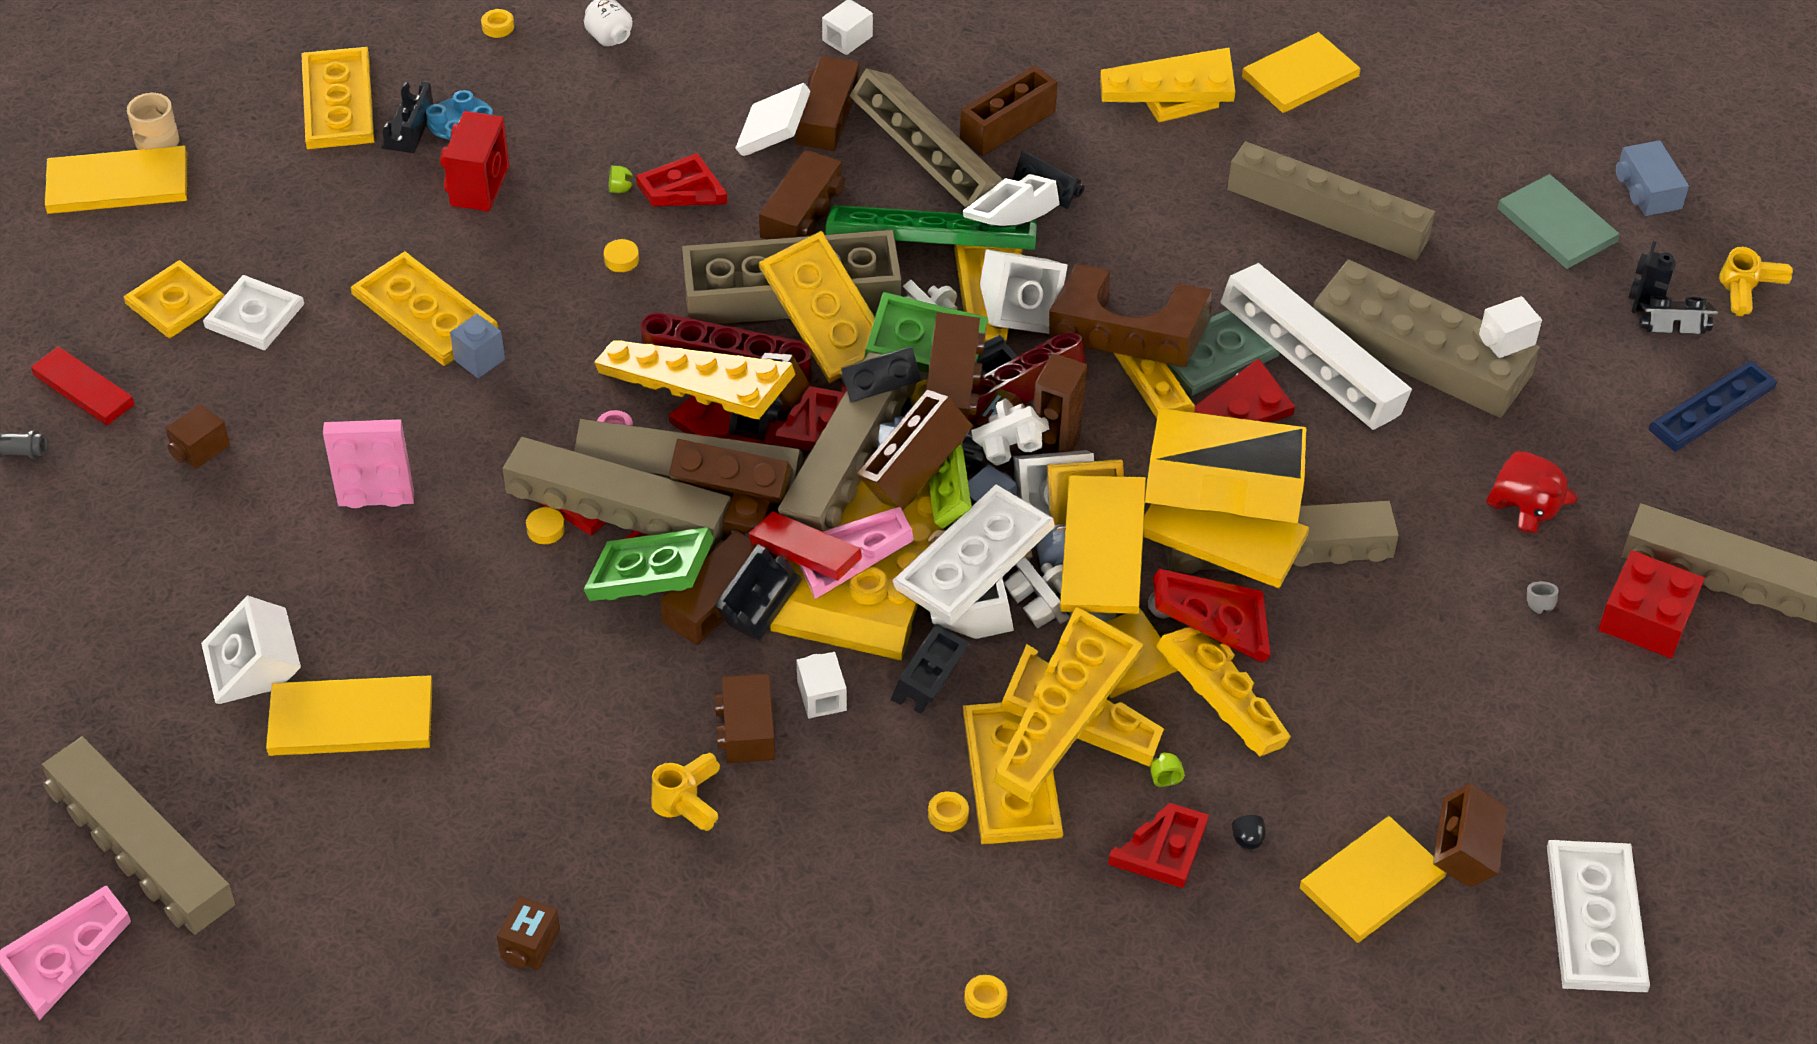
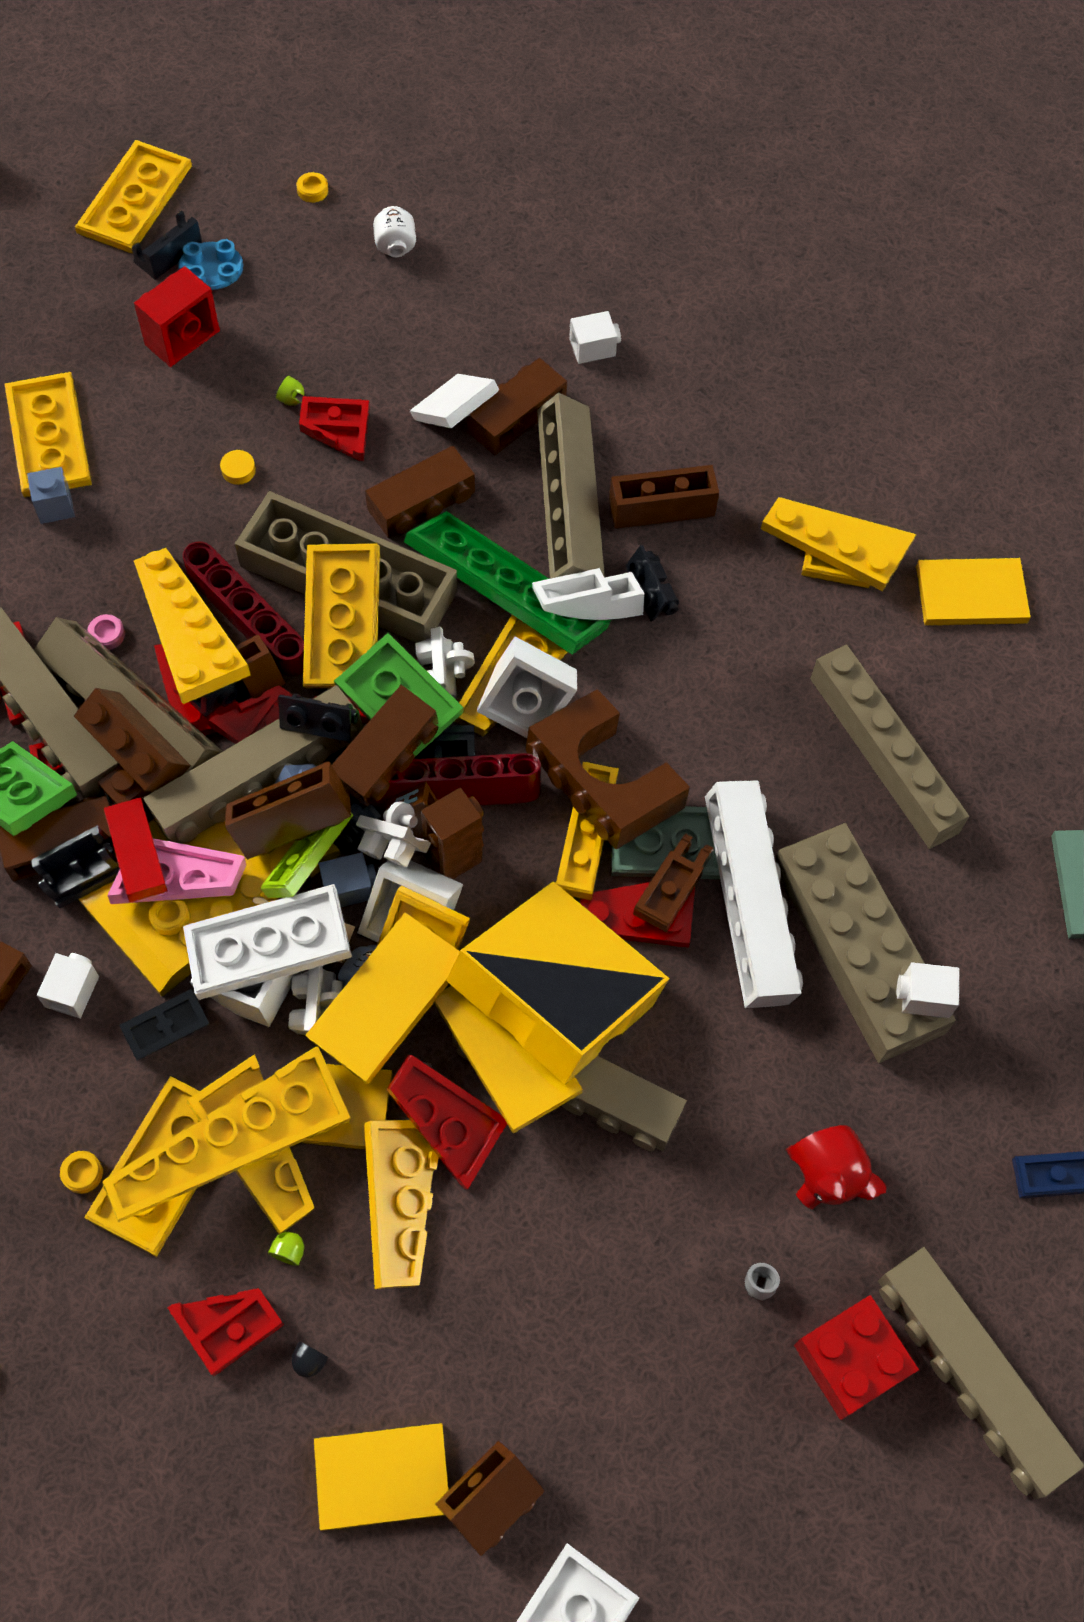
camera: 30 degrees right, 15 degrees up
(1252, 368) = (672, 885): none -> reddish brown hinge

